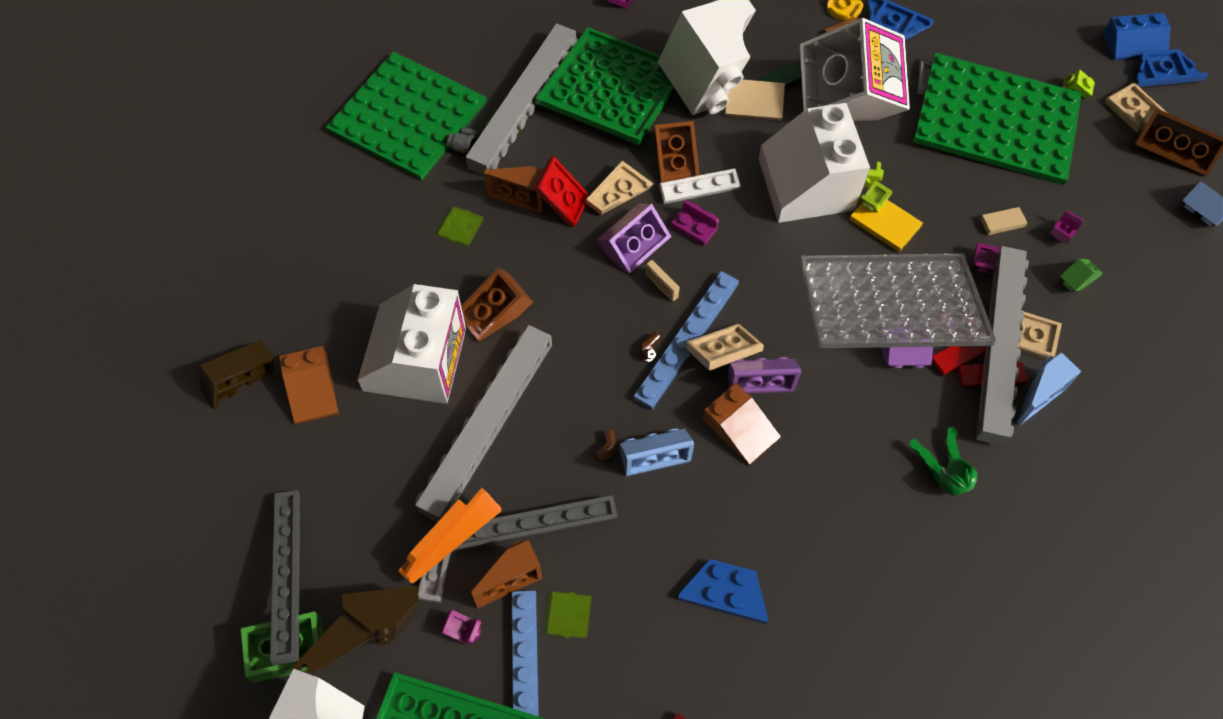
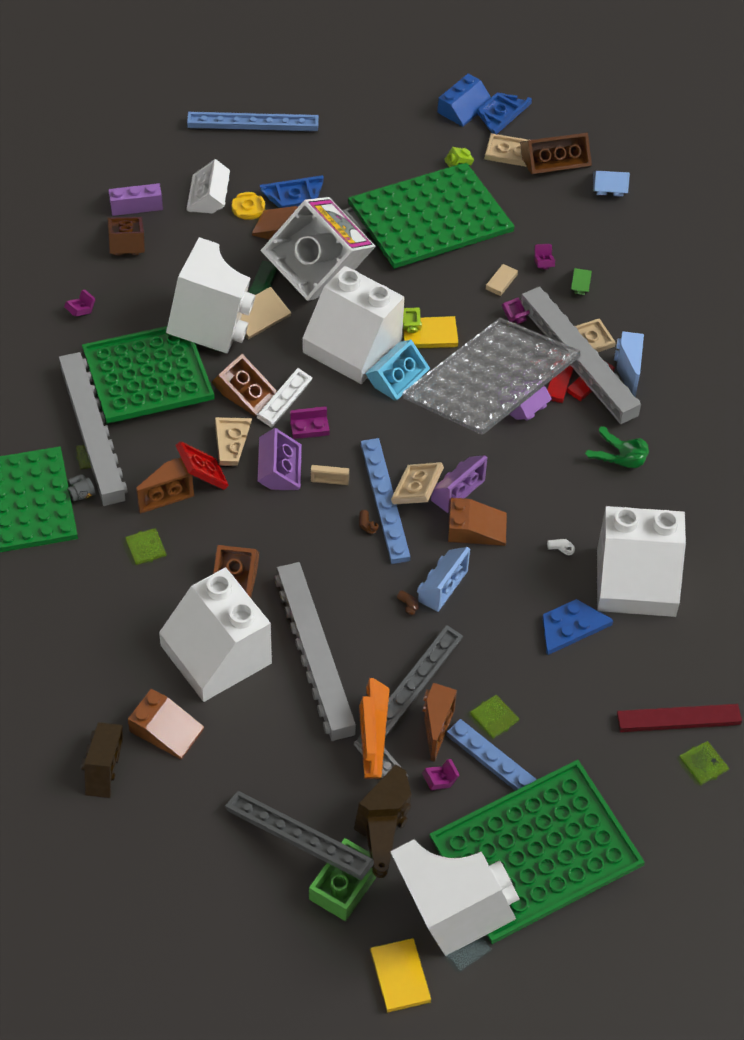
camera: 45 degrees left, 10 degrees down
(799, 509) = (562, 545): none -> white arm
(819, 233) = (398, 369): none -> medium azure slope
(842, 590) = (640, 561): none -> white slope

